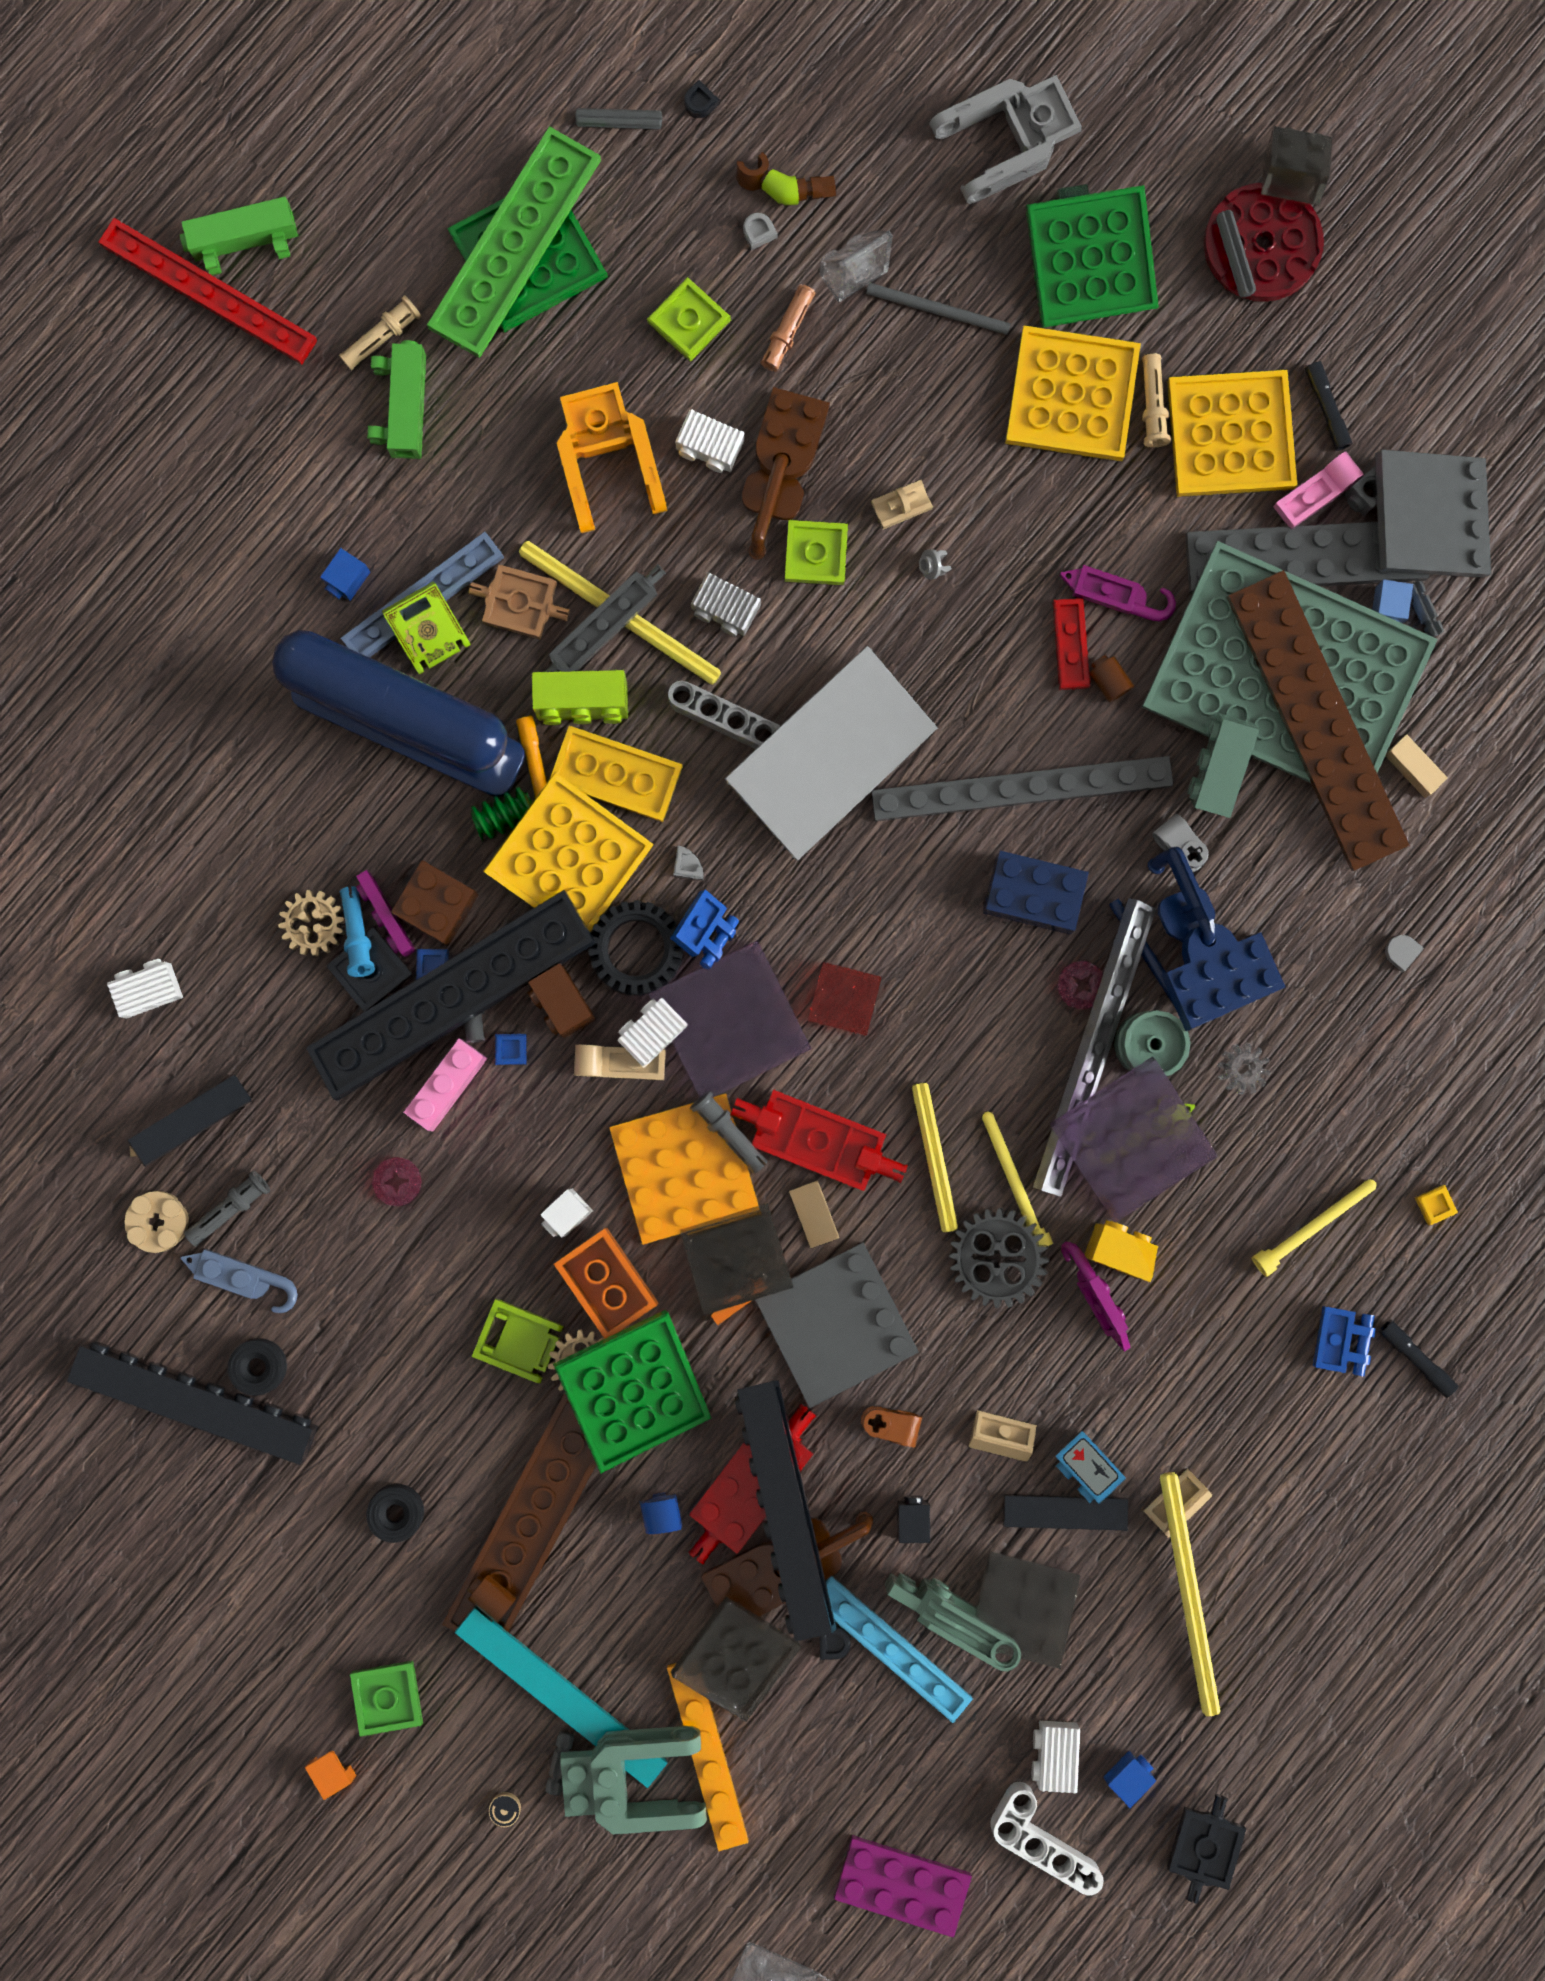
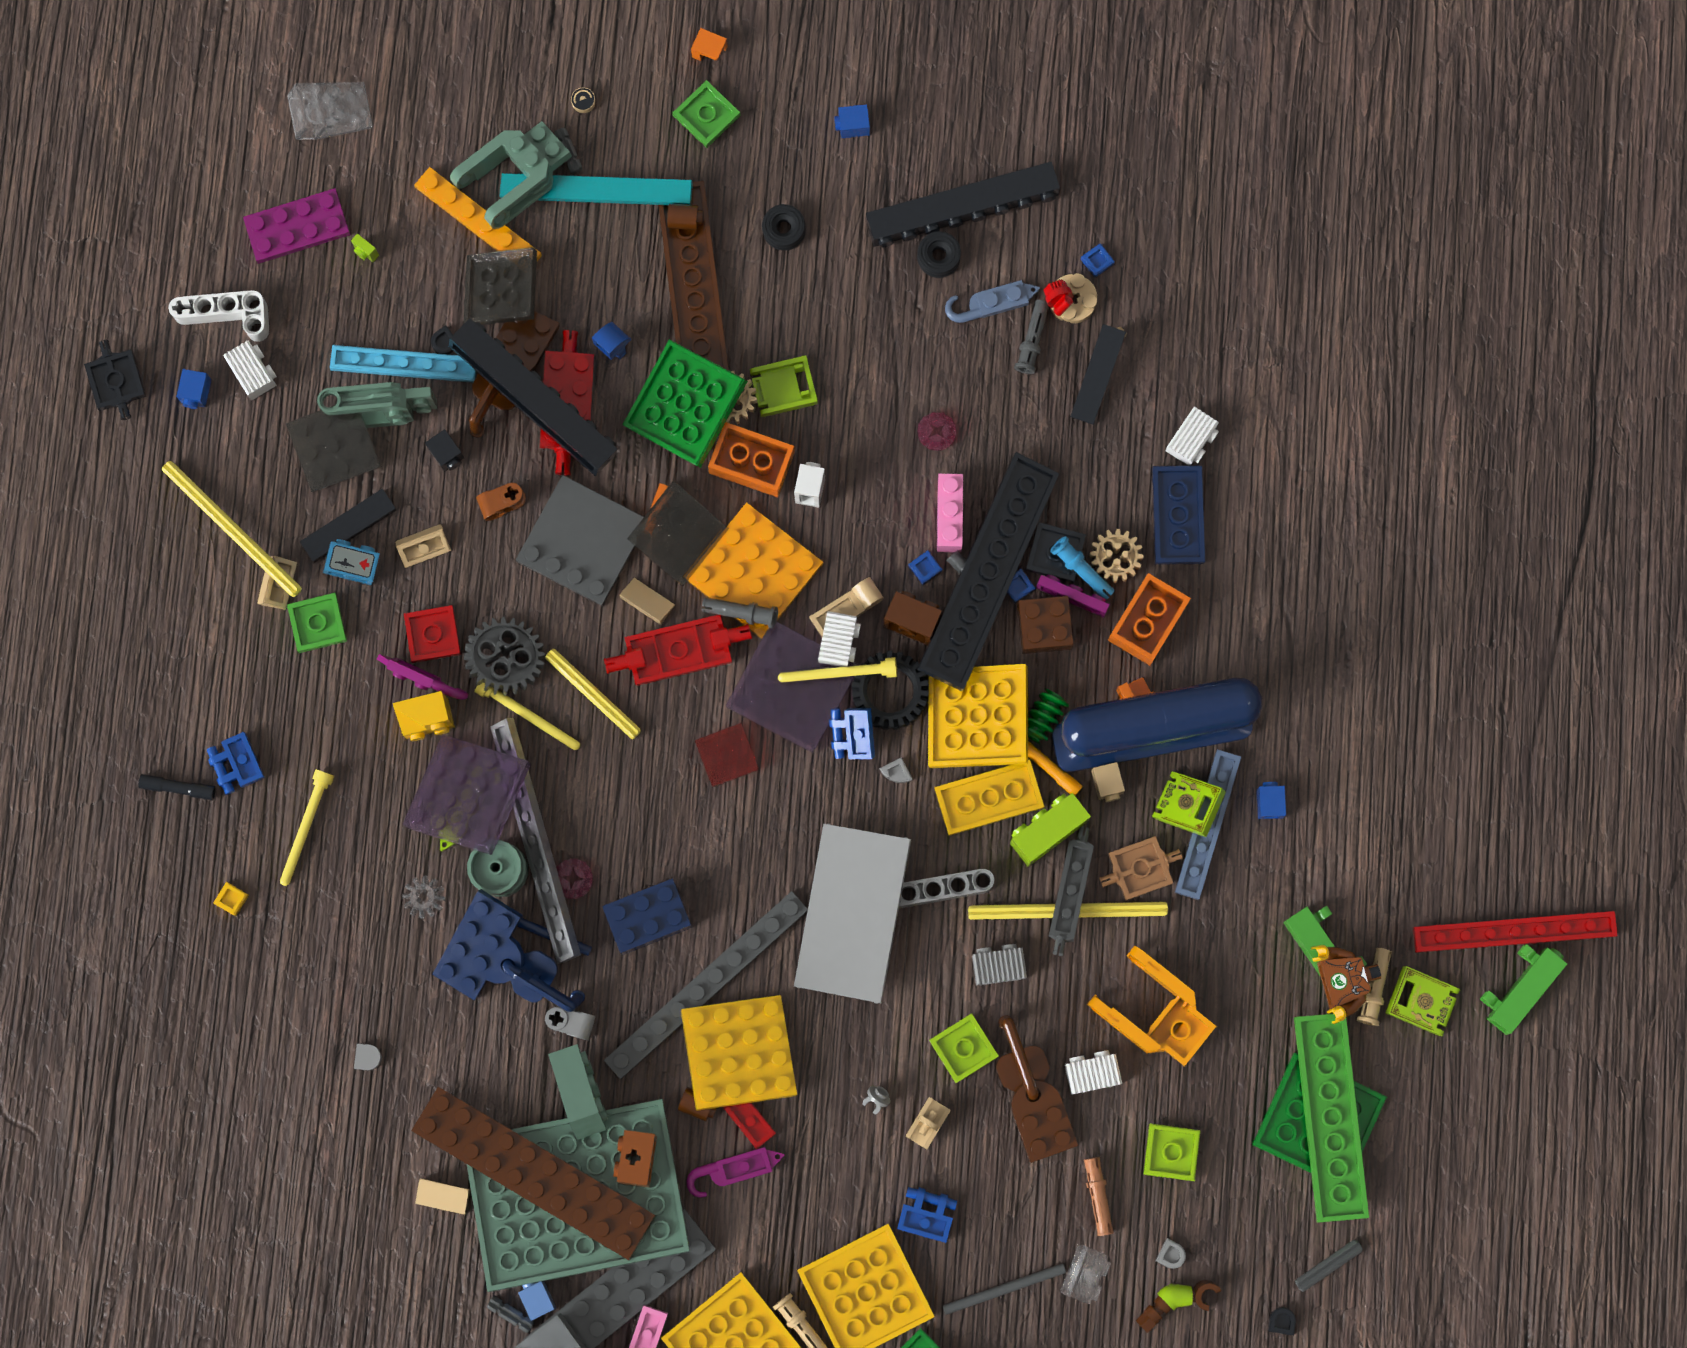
camera: 150 degrees right, 5 degrees down
(101, 1244) = (1097, 260): none -> blue tile
(168, 1228) = (1058, 296): none -> red piece
(219, 921) = (1178, 515): none -> dark blue plate
(239, 1578) = (852, 121): none -> blue brick
(327, 834) = (1149, 619): none -> orange brick
(340, 284) = (1428, 1001): none -> lime container
(397, 773) = (1133, 689): none -> orange panel
(405, 347) = (1344, 980): none -> torso
(491, 699) = (1108, 782): none -> tan brick
(625, 968) = (886, 667): none -> light yellow piece
(849, 1806) = (364, 248): none -> lime plate
(969, 417) = (924, 1222): none -> blue plate
(1038, 697) = (738, 1052): none -> yellow plate
(1055, 1334) = (432, 634): none -> red plate
(1165, 1430) = (317, 622): none -> bright green plate
(1223, 648) = (640, 1173): none -> dark orange brick

